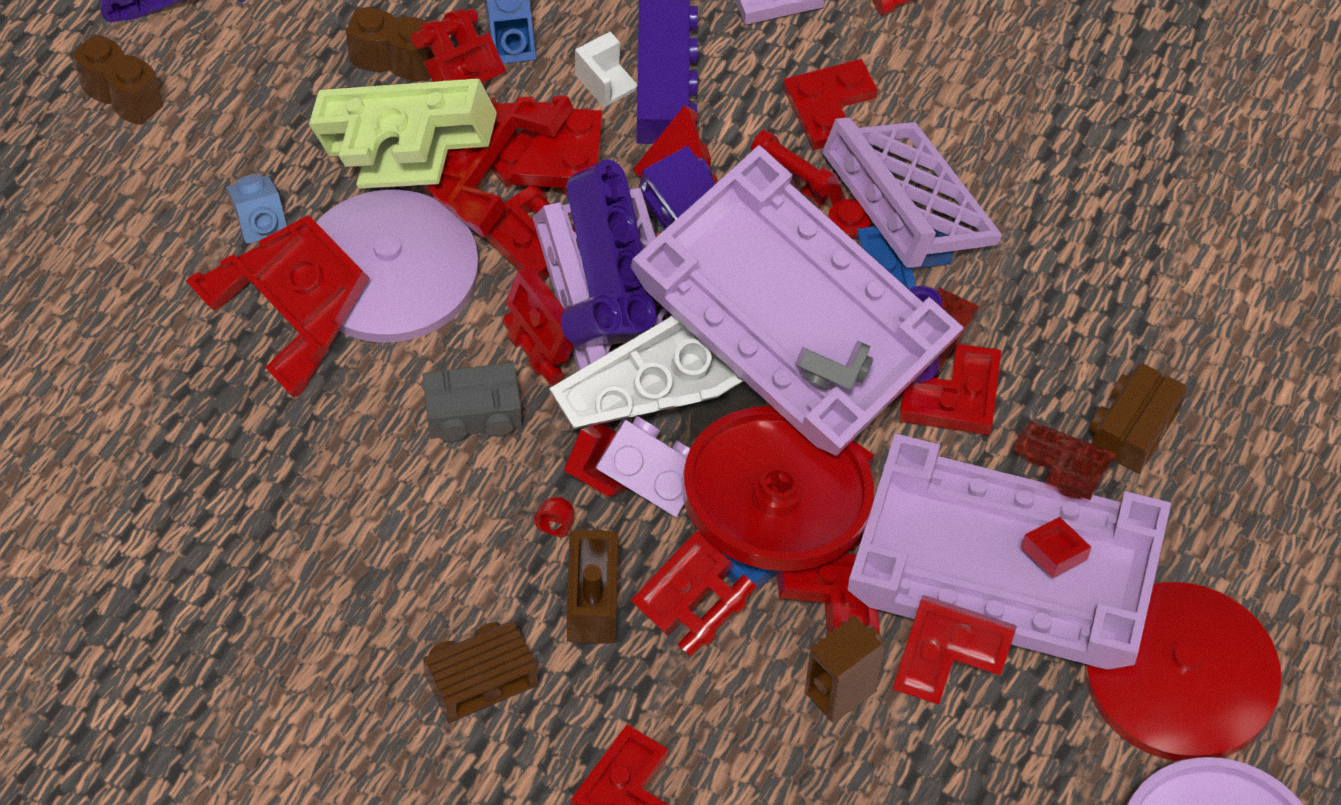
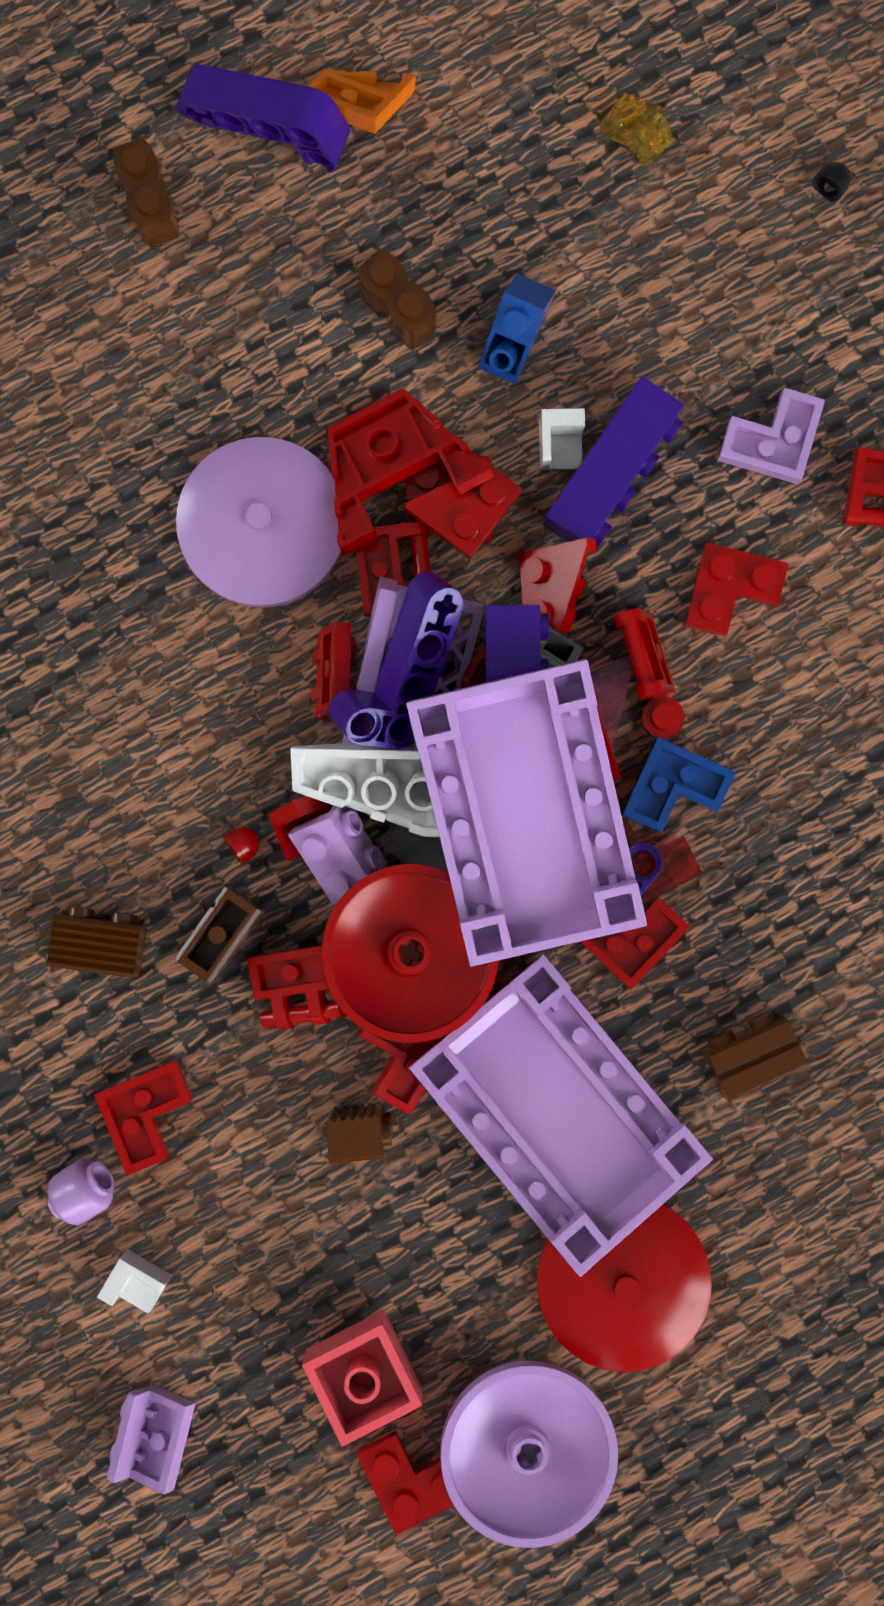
camera: 30 degrees right, 30 degrees up
(256, 207) = (187, 397): medium blue bracket -> none
(304, 280) = (173, 505): red wing -> none
(402, 129) = (335, 409): yellowish green piece -> none
(472, 59) = (439, 364): red plate -> none
(472, 401) = (239, 701): dark grey brick -> none
(823, 370) = (508, 901): bracket -> none
(890, 201) = (694, 727): lavender fence -> none
(947, 634) = (452, 1155): red plate -> none
(1056, 547) = (592, 1139): red plate -> none
(1075, 464) = (675, 1065): clear red plate -> none

